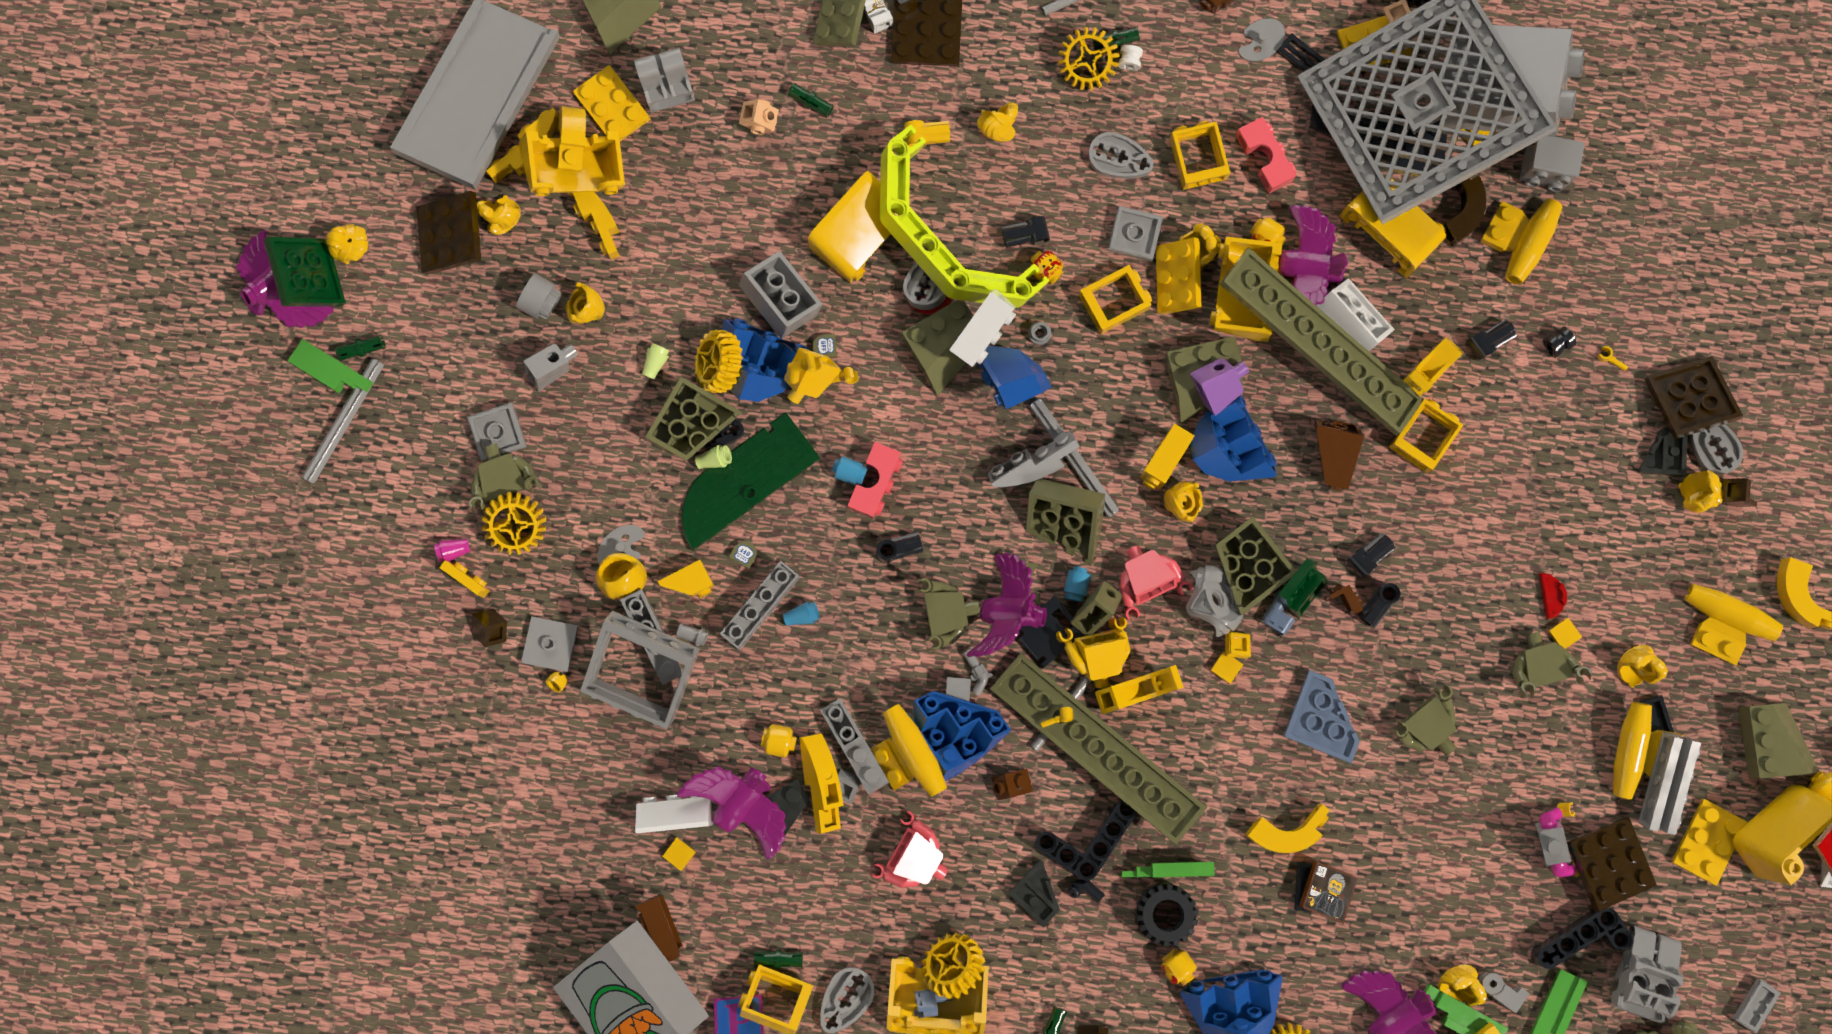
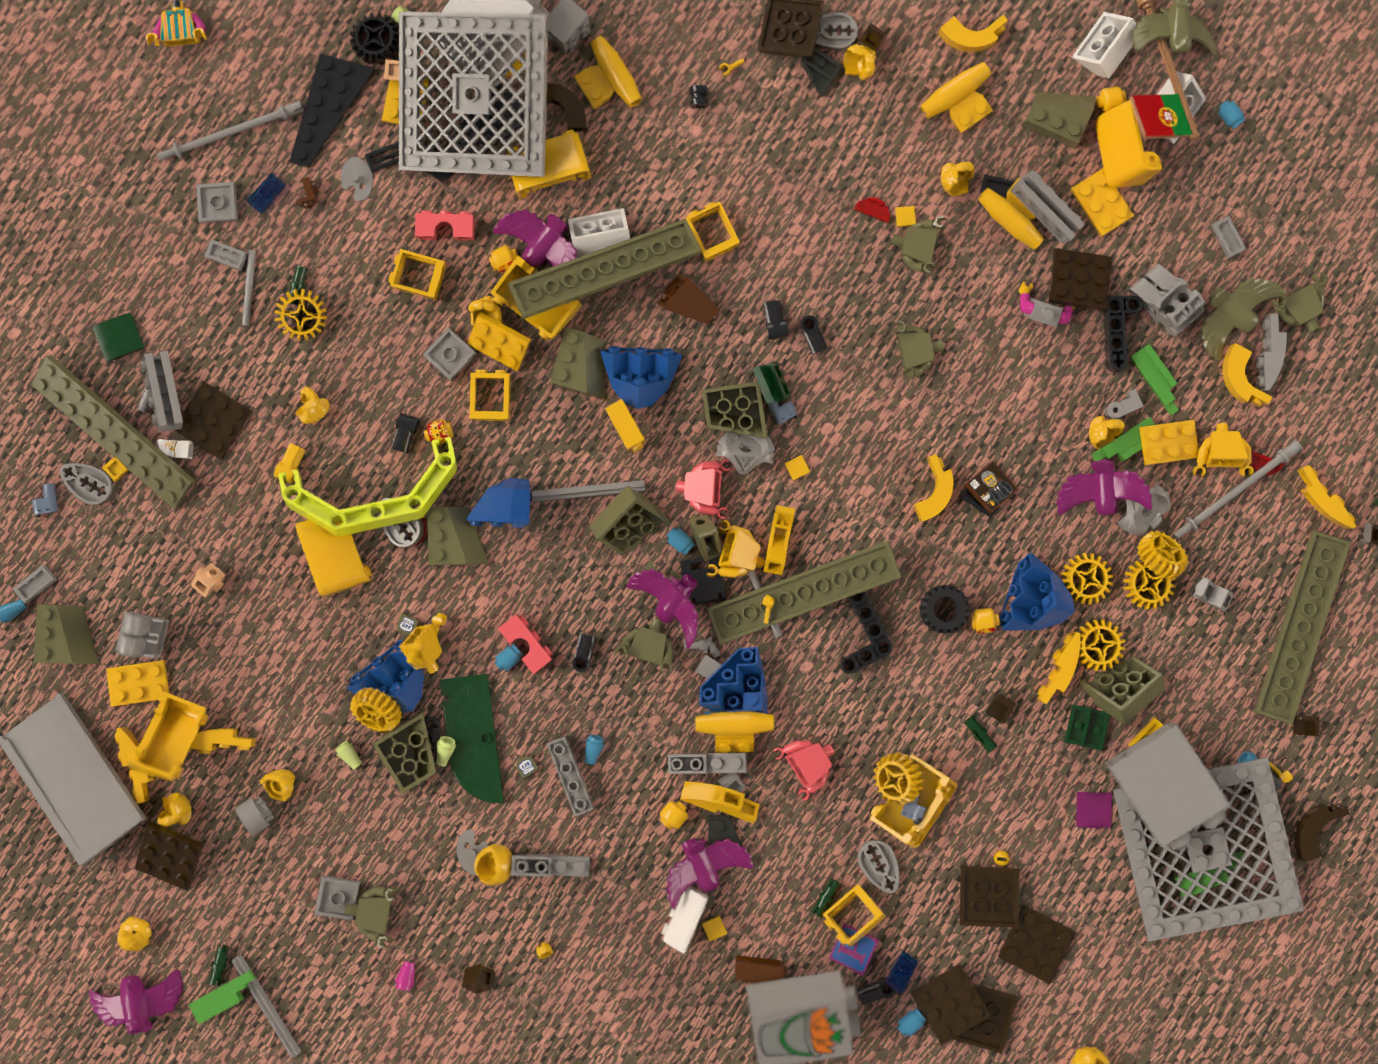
camera: 60 degrees left, 5 degrees up
(304, 272) = (139, 978): dark green plate -> none
(459, 571) = (426, 980): yellow plate -> none
(522, 520) = (427, 927): yellow gear -> none
(543, 371) = (312, 841): light grey torso -> none
(549, 644) = (514, 941): light grey plate -> none
(572, 138) = (148, 727): yellow arch -> none
(650, 639) = (555, 867): light grey window -> none
(690, 581) = (524, 816): yellow slope -> none
(692, 634) = (561, 837): light grey pin -> none
(780, 294) = (351, 637): light grey brick -> none
(810, 100) = (216, 534): dark green pin -> none
(984, 328) = (460, 506): white slope -> none
(1012, 784) = (795, 666): reddish brown bracket -> none
(1026, 468) = (577, 529): light grey slope -> none
(1036, 894) = (881, 692): pearl dark grey wing -> none
(1039, 326) = (479, 460): light grey plate -> none
(1085, 887) = (892, 659): black arm -> none
(1120, 144) = (377, 327): light grey piece -> none
(1130, 57) = (317, 283): white wheel -> none
(1172, 869) = (916, 587): bright green piece -> none
(1187, 493) = (656, 429): yellow hair -> none
(1219, 383) = (593, 358): medium lavender torso -> none
(1237, 645) = (786, 451): yellow tile -> none
(1322, 720) = (870, 422): sand blue plate -> none
(1350, 599) = (799, 352): reddish brown bracket -> none
(1433, 366) = (665, 197): yellow arch -> none
(1487, 341) = (669, 149): black piece -> none

